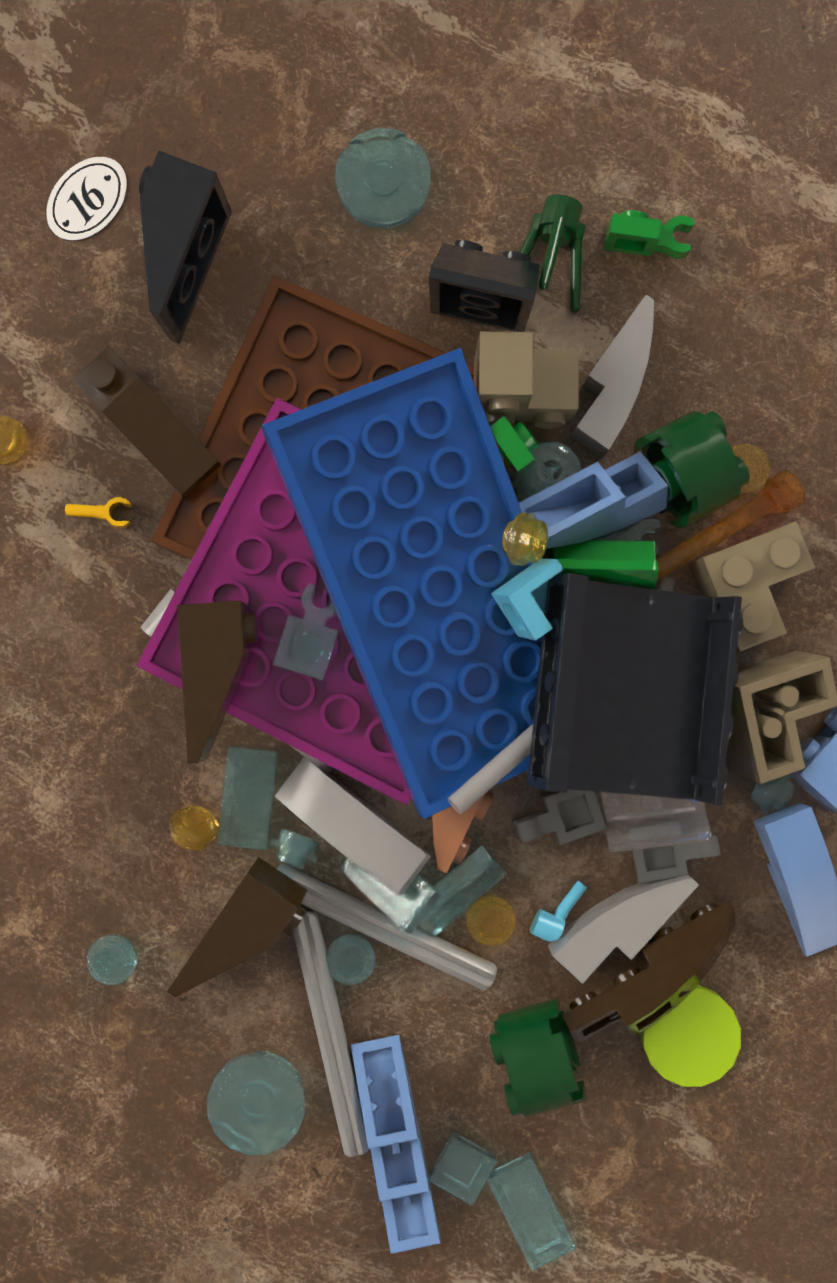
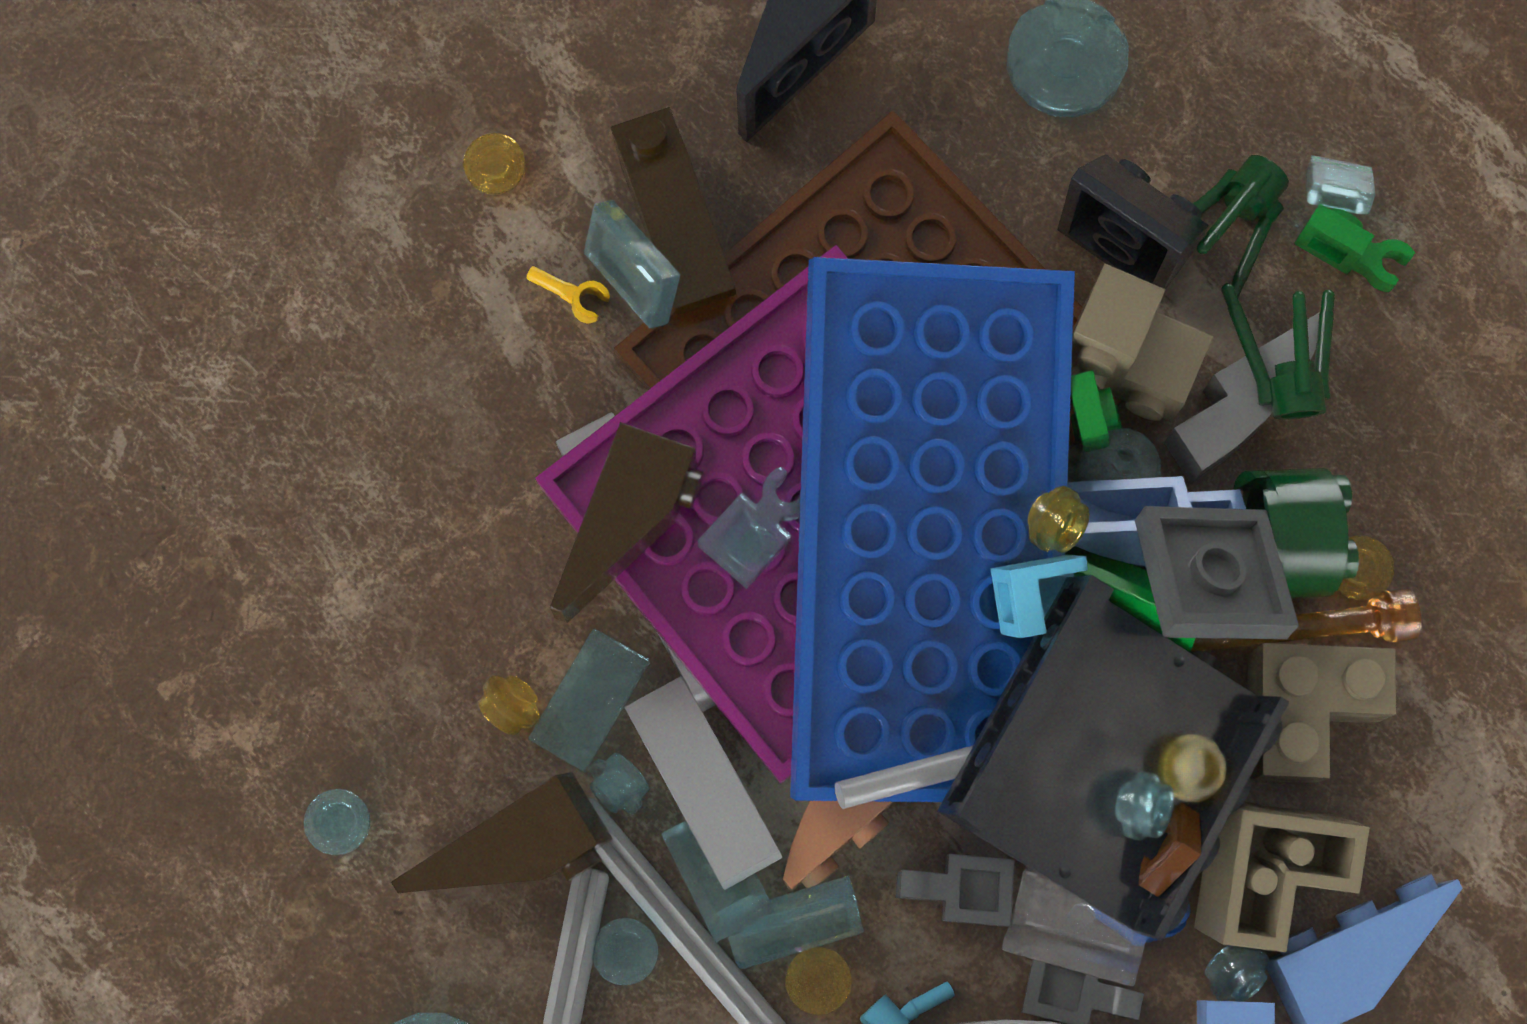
camera: 20 degrees right, 10 degrees down
(135, 474) = (631, 264): none -> clear light blue tile
(620, 191) = (1340, 185): none -> clear light blue tile
(654, 528) = (1215, 573): none -> dark grey plate
(655, 357) = (1299, 385): none -> dark green plant
(670, 716) = (1144, 806): none -> clear light blue plate
(691, 672) = (1192, 767): none -> clear yellow plate
(705, 736) = (1175, 854): none -> reddish brown tile

